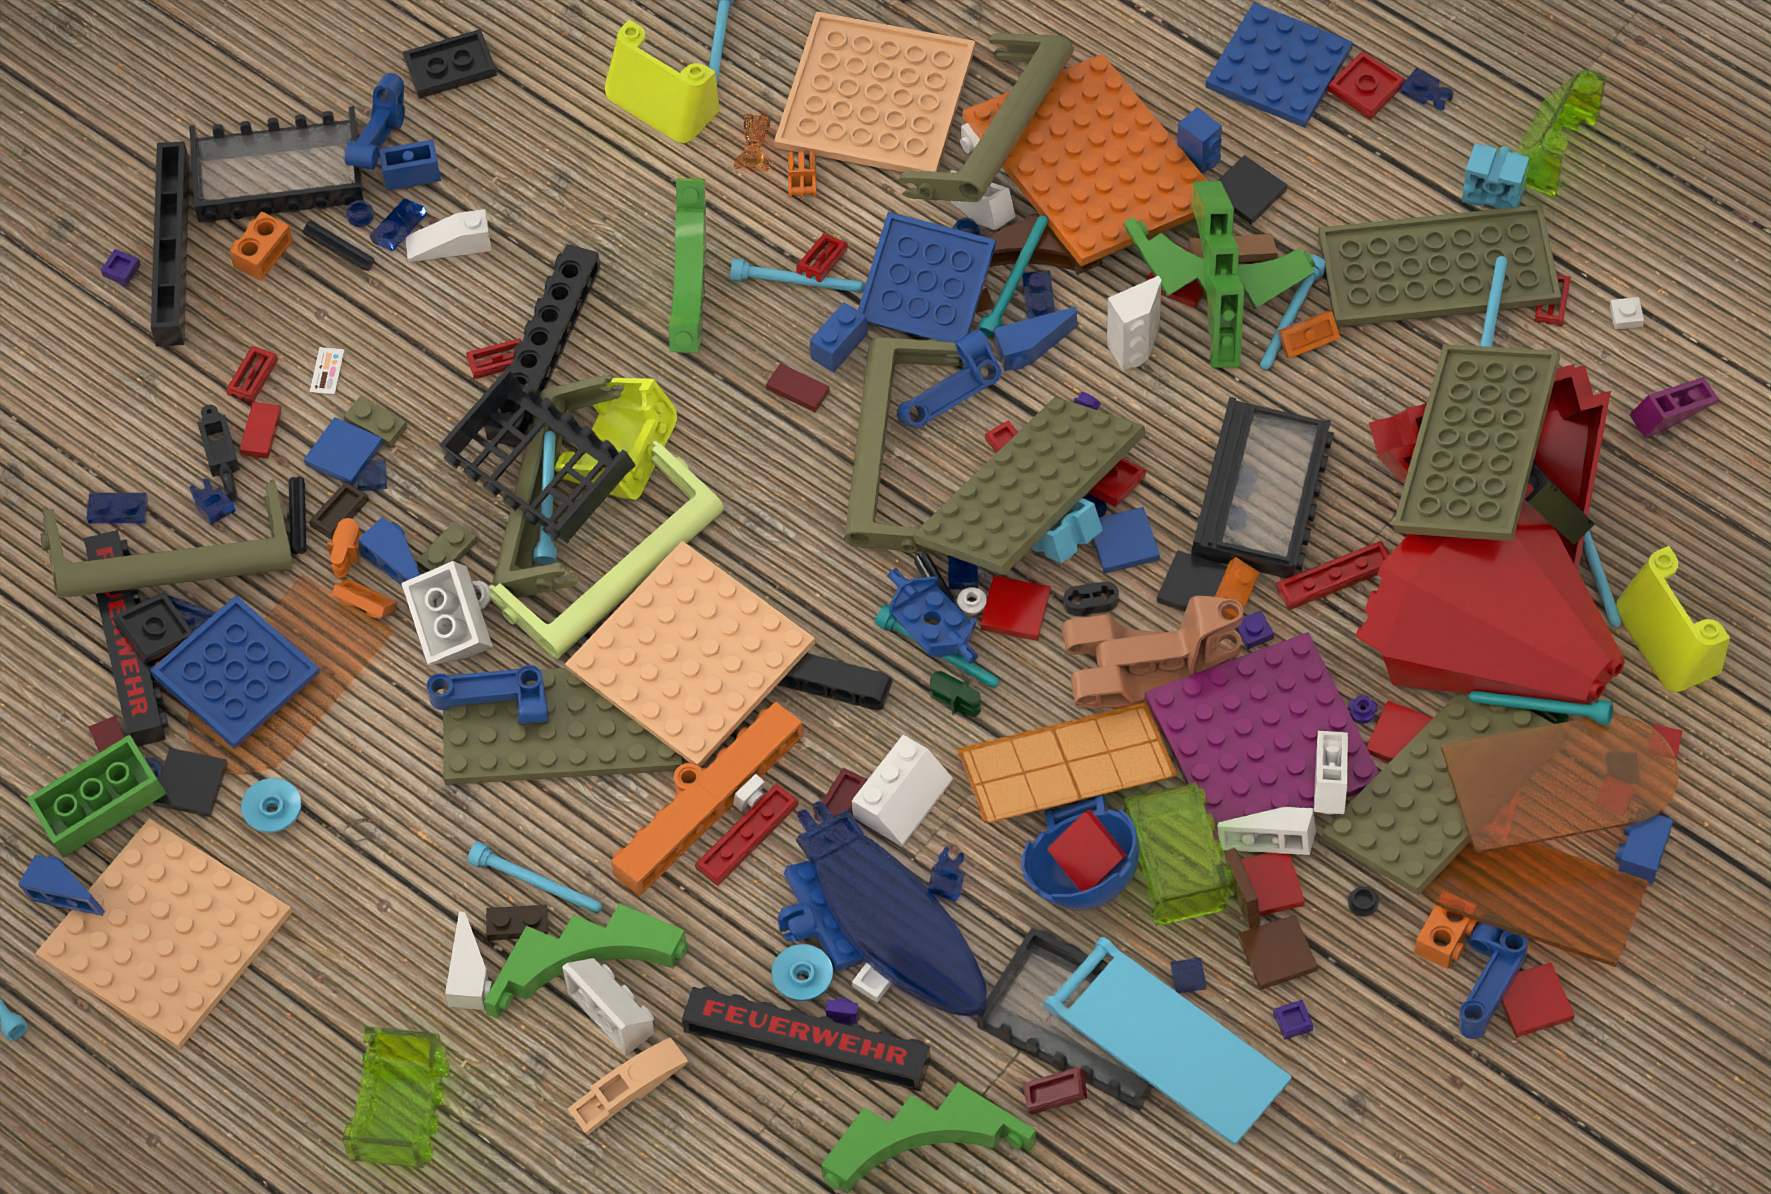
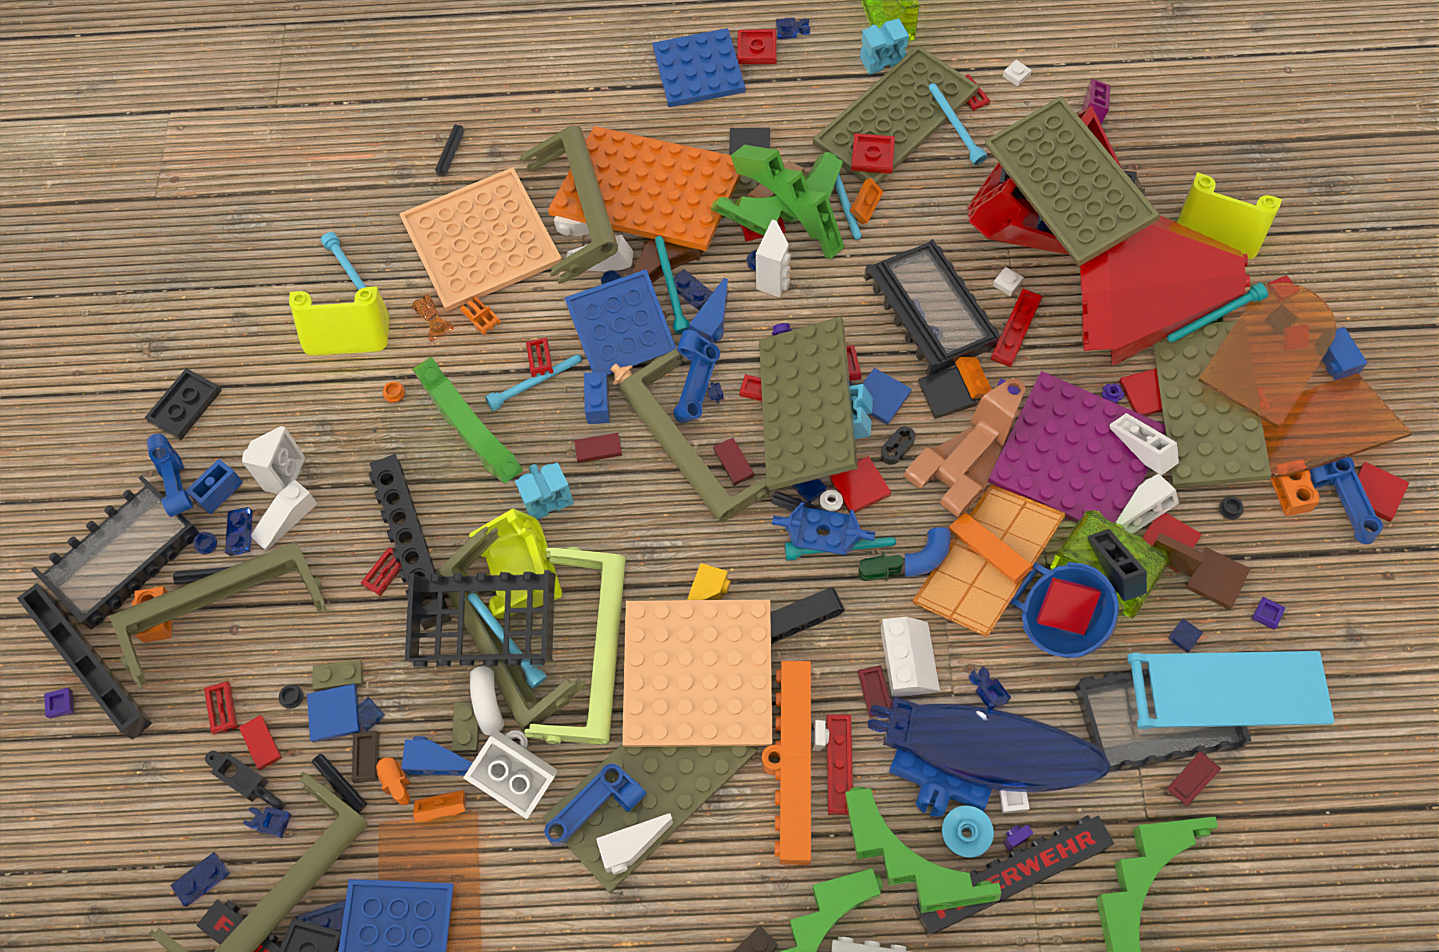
camera: 40 degrees left, 5 degrees up
(319, 409) = (291, 696): none -> black plate
(325, 259) = (207, 591): none -> olive piece
(327, 370) = (272, 665): white sticker -> none
(479, 534) = (484, 700): none -> white cylinder
(481, 176) = (274, 460): none -> white slope
(481, 855) = (686, 925): medium azure piece -> none
(495, 749) = (627, 845): none -> white slope
(653, 192) = (393, 392): none -> orange plate
(703, 388) = (544, 490): none -> medium azure brick
(719, 978) = (935, 885): none -> bright green arch
(778, 588) = (709, 583): none -> yellow slope
(884, 329) = (621, 373): none -> light nougat plant
(915, 495) = (733, 461): none -> dark red tile
(960, 416) = (715, 392): none -> clear blue plate
(1013, 719) = (931, 555): none -> blue cylinder
(1073, 751) = (990, 548): none -> orange tile
(1161, 843) = (1119, 565): none -> black slope
(1200, 139) = (703, 131): blue brick -> none
(1364, 288) = (873, 153): none -> red tile
(1375, 523) = (1008, 281): none -> white plate

